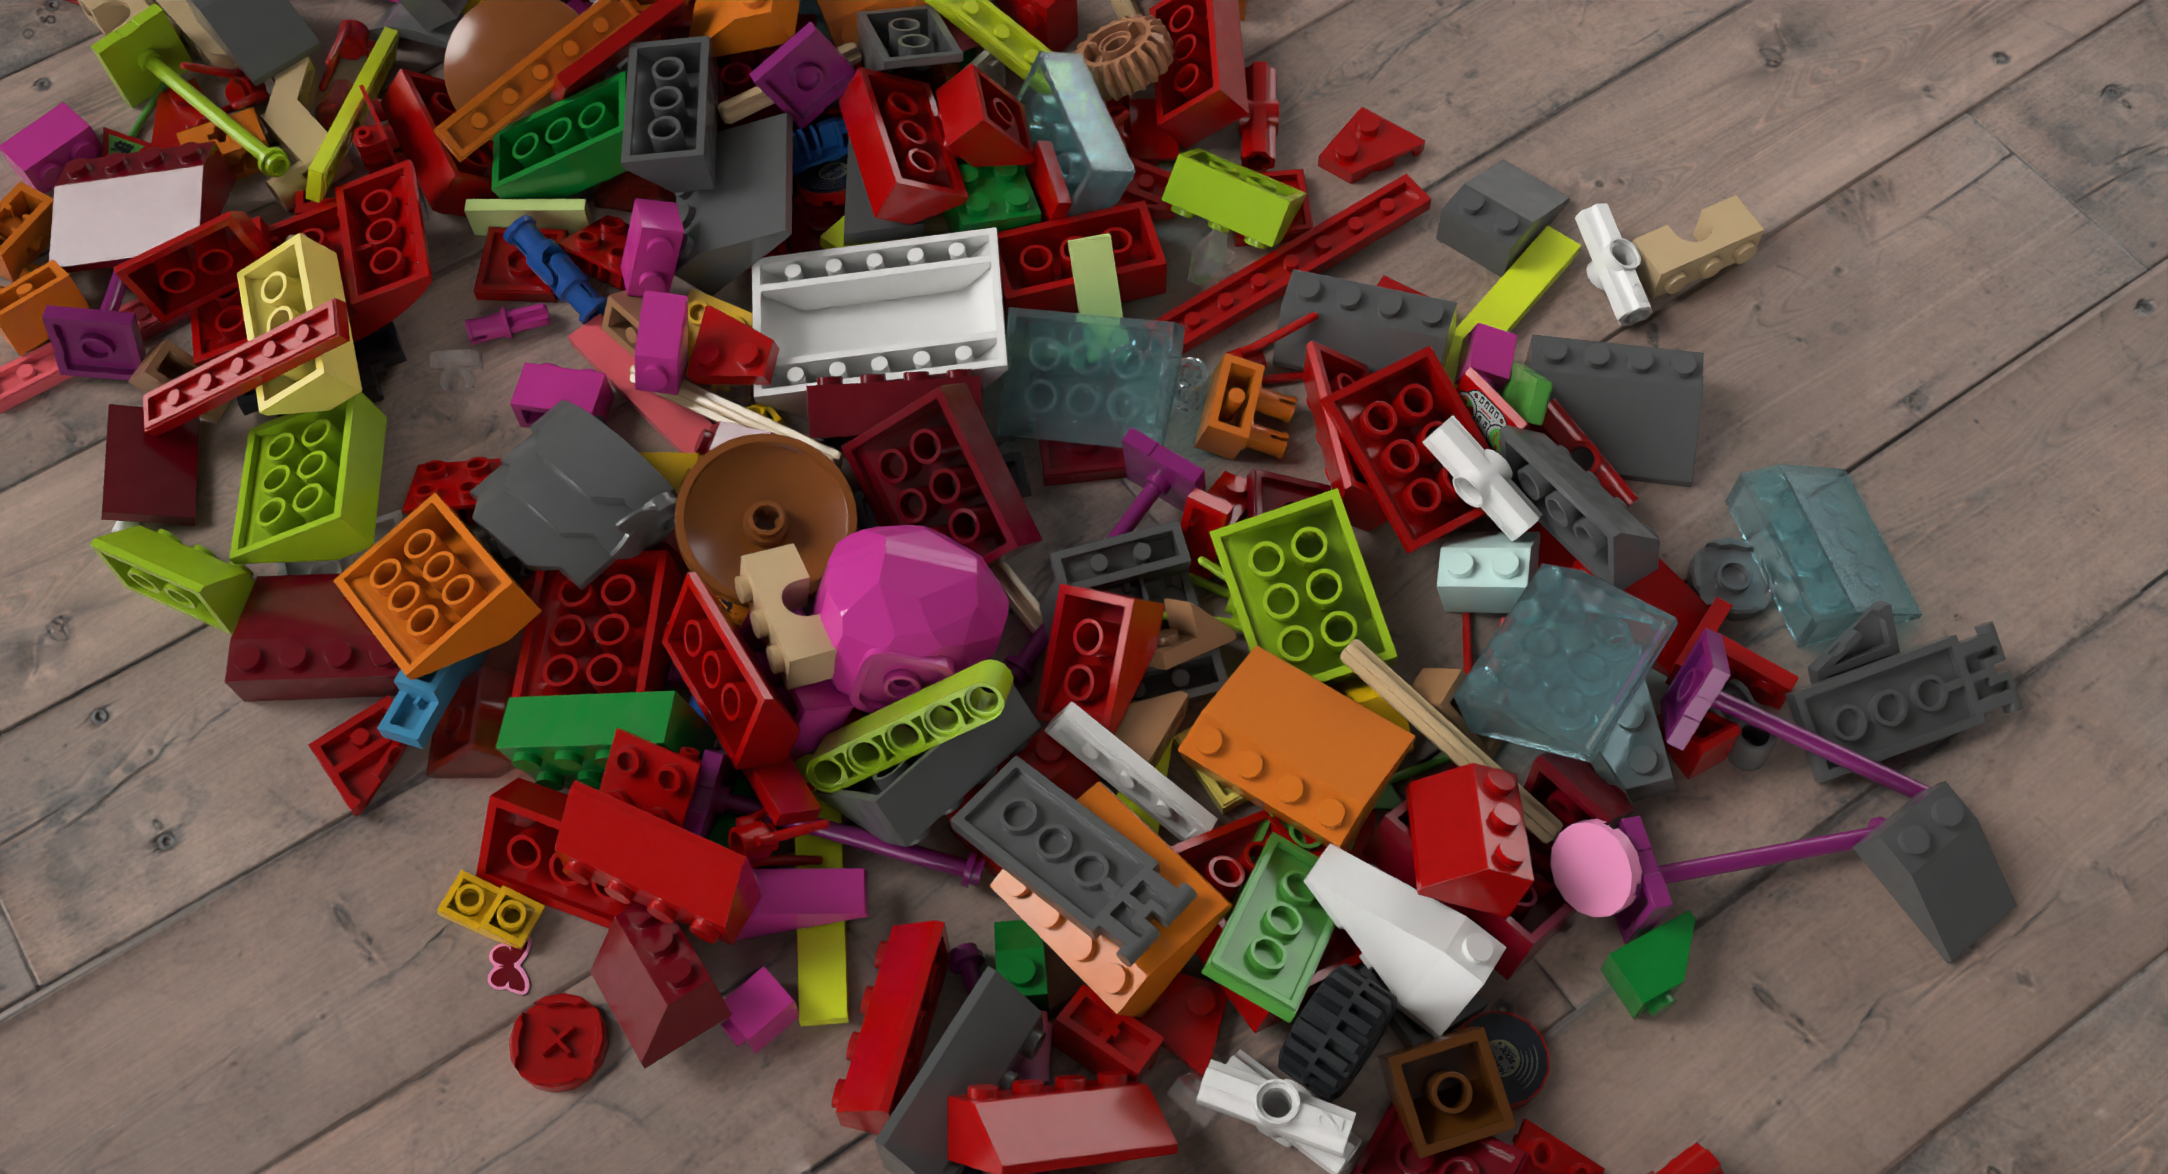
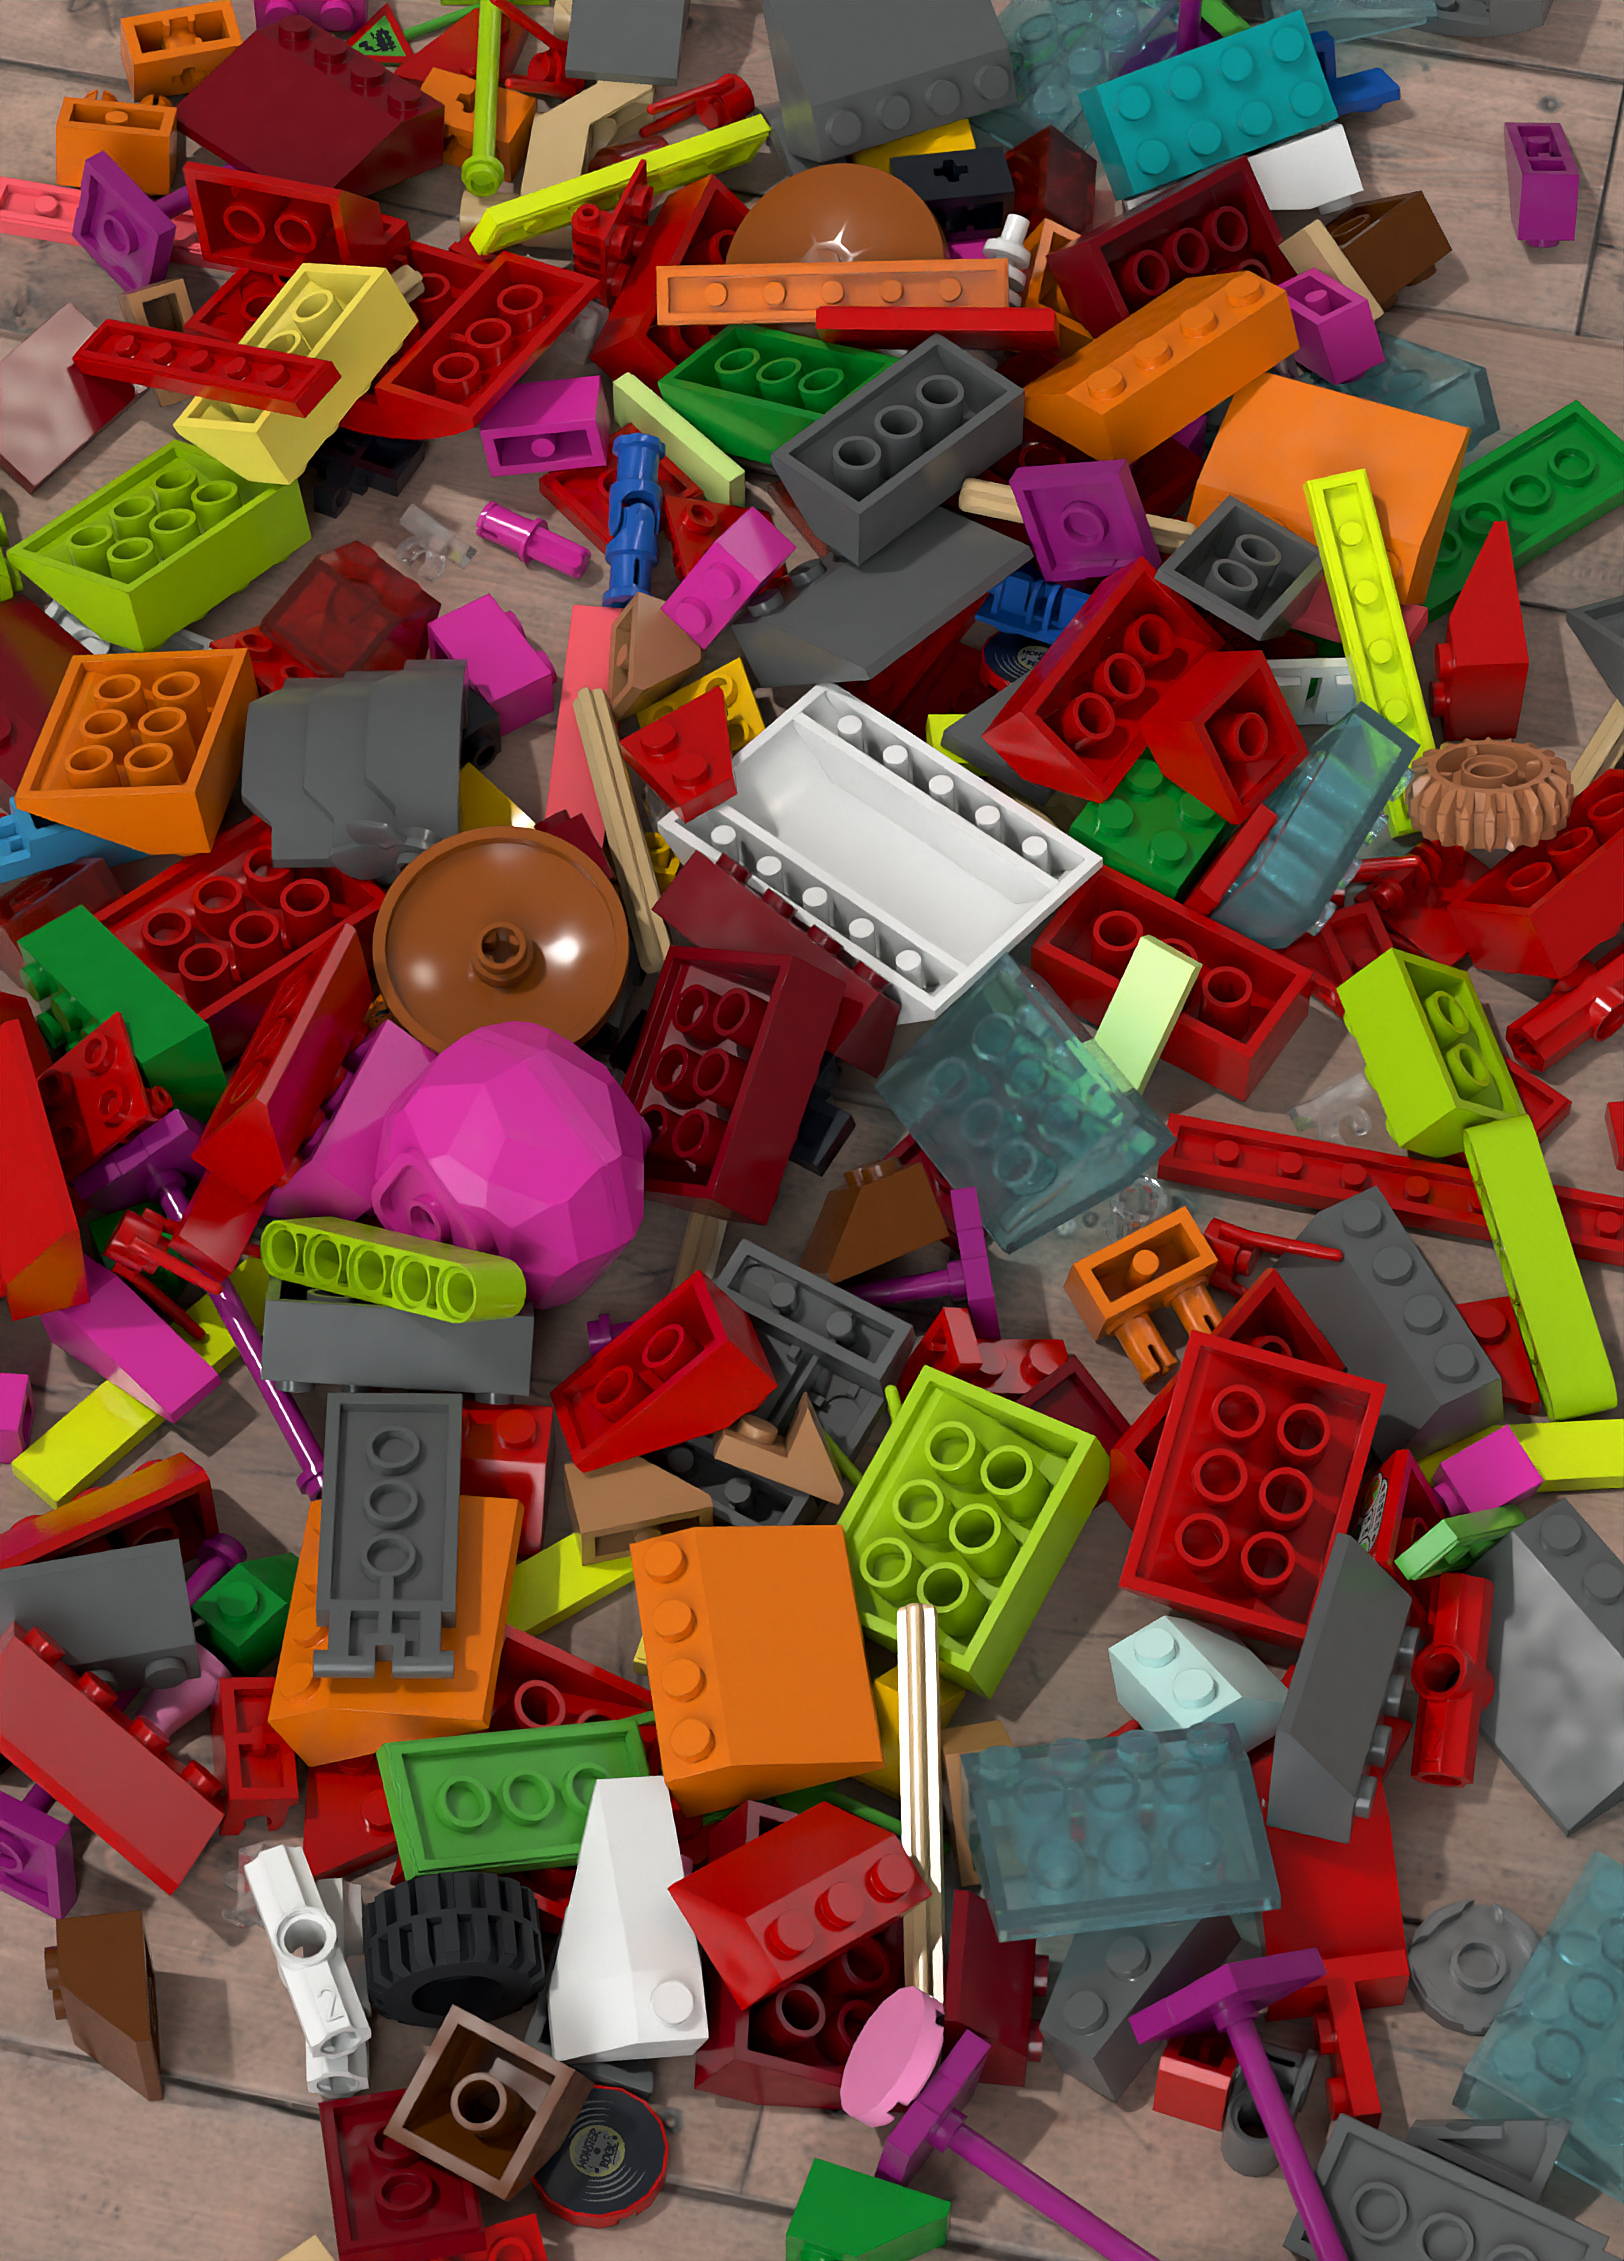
camera: 45 degrees right, 5 degrees down
(458, 258) = (547, 427): none -> dark pink brick
(463, 433) = (352, 614): none -> clear red slope
(662, 343) = (618, 685): dark pink slope -> none
(796, 645) = (417, 1017): tan arch -> none
(1089, 493) = (873, 1220): none -> reddish brown slope
(1129, 773) = (562, 1524): white tile -> none
(1389, 245) = (1539, 1268): none -> lime beam
(1482, 478) = (1278, 1574): white piece -> none

